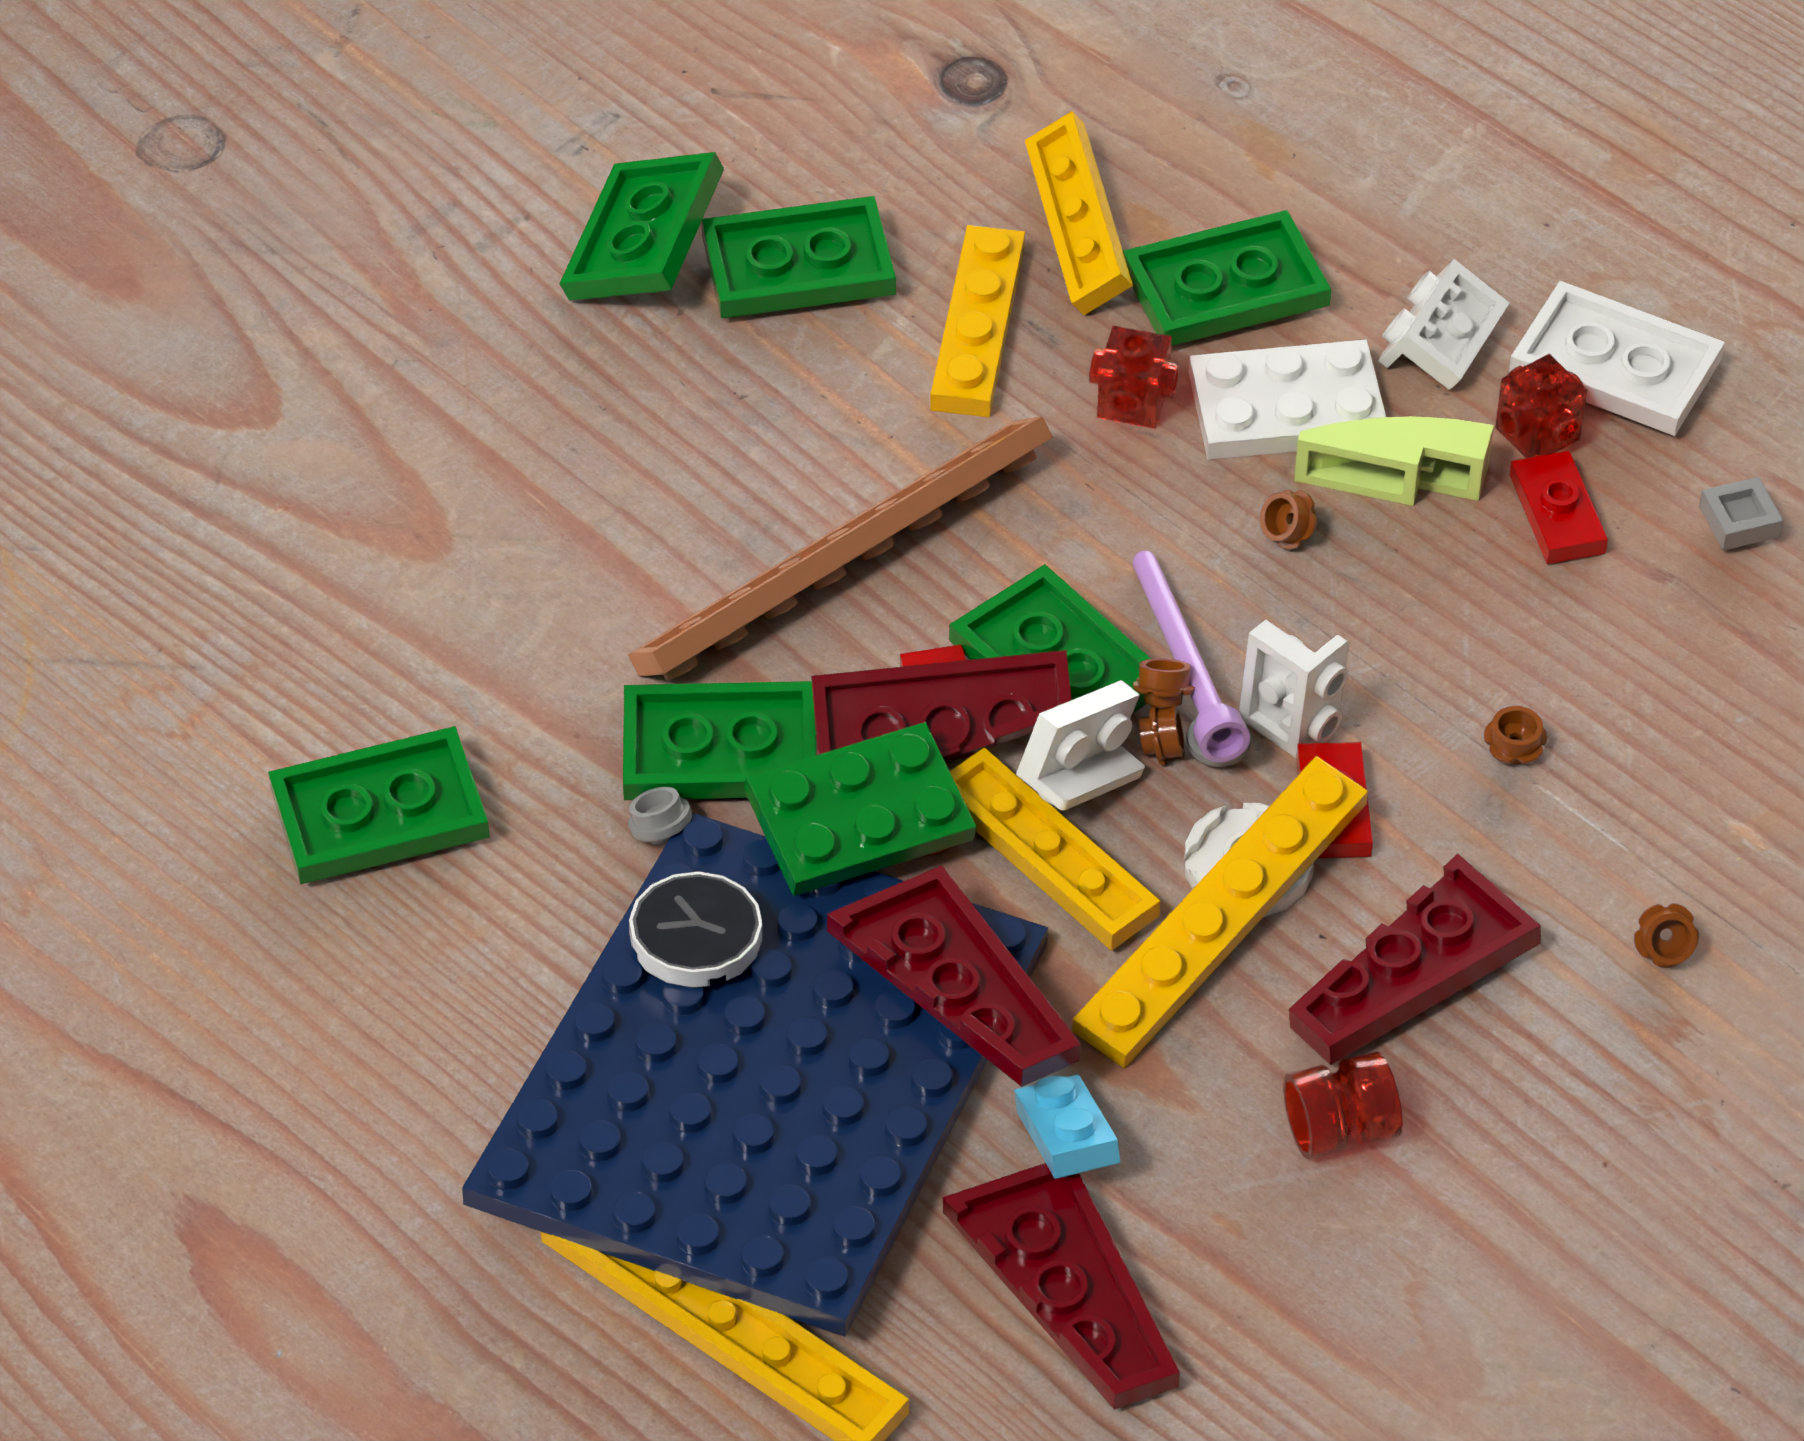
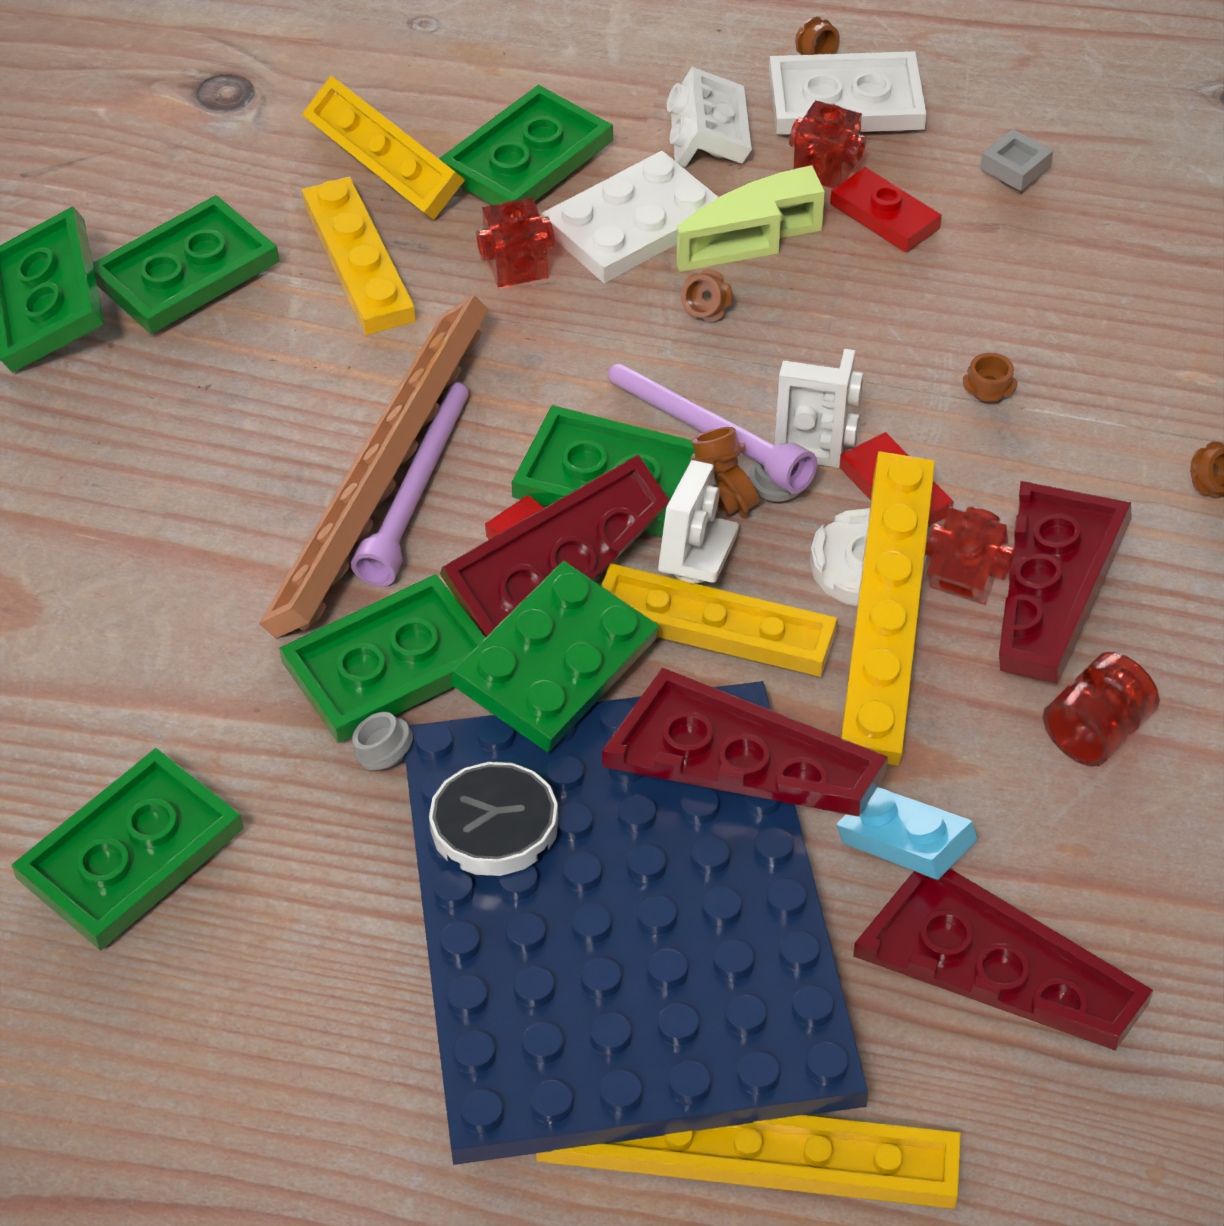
camera: 30 degrees left, 0 degrees up
(778, 641) = (380, 554): none -> lavender piece
(1333, 899) = (968, 554): none -> clear red brick
(1641, 292) = (817, 37): none -> dark orange plate

